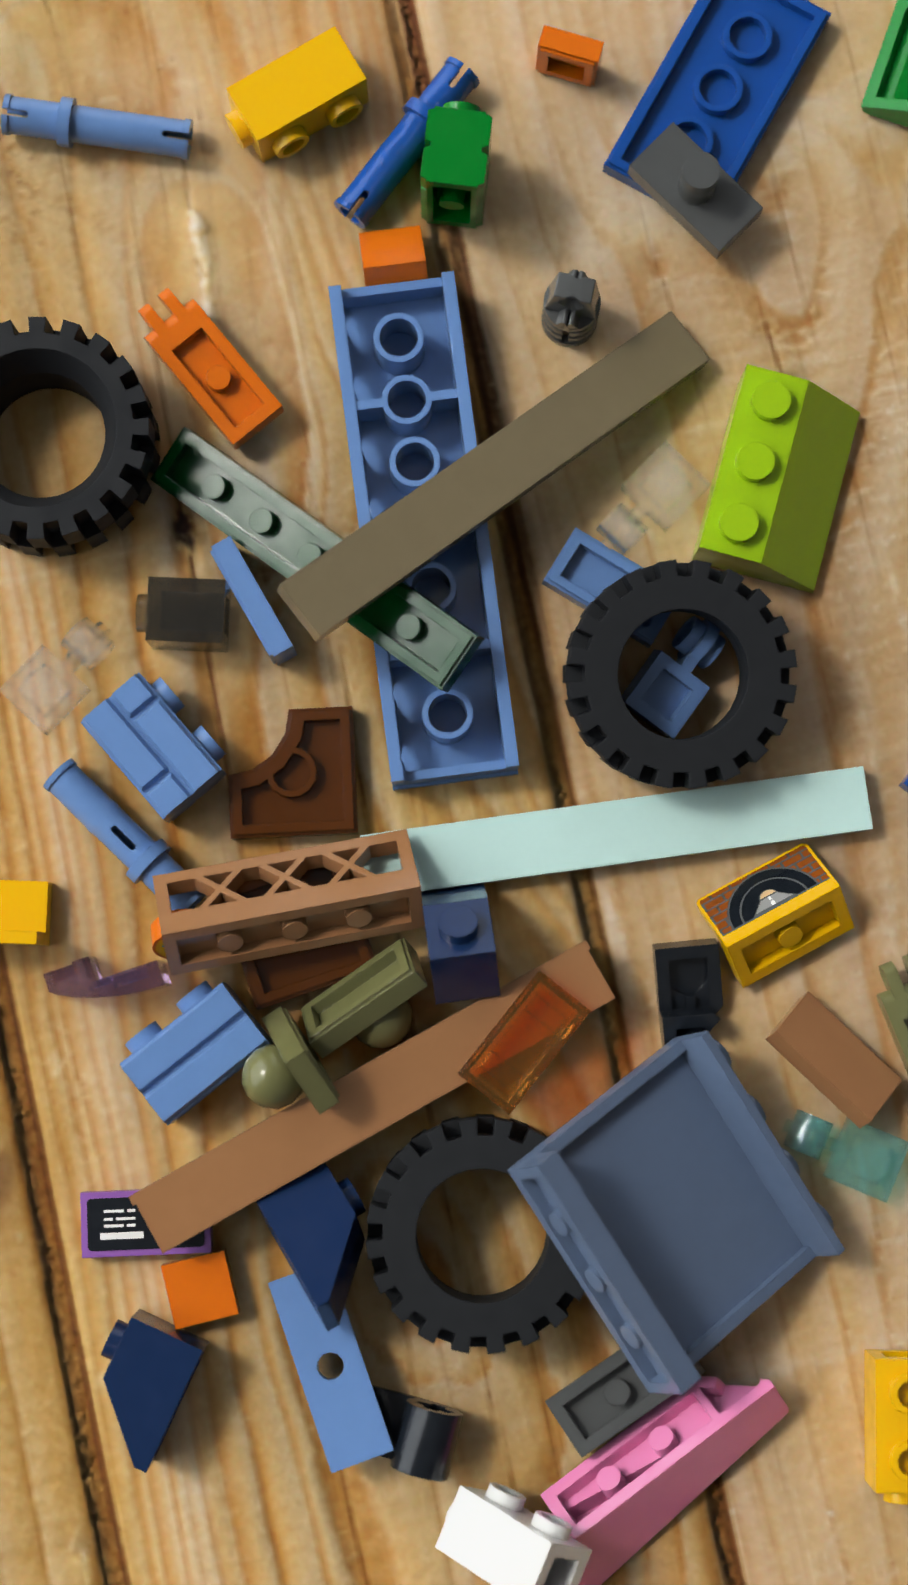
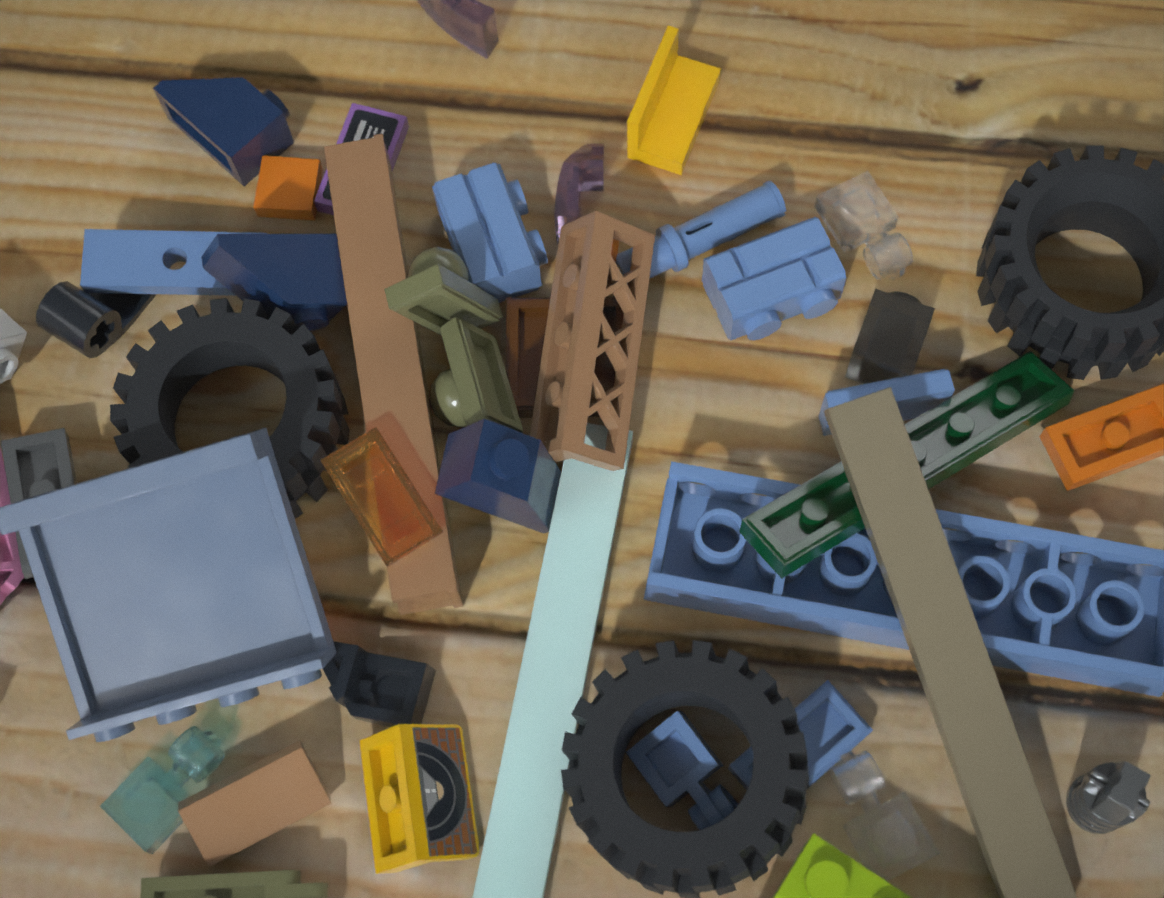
camera: 115 degrees right, 15 degrees down
(304, 784) = (699, 403): reddish brown tile -> none

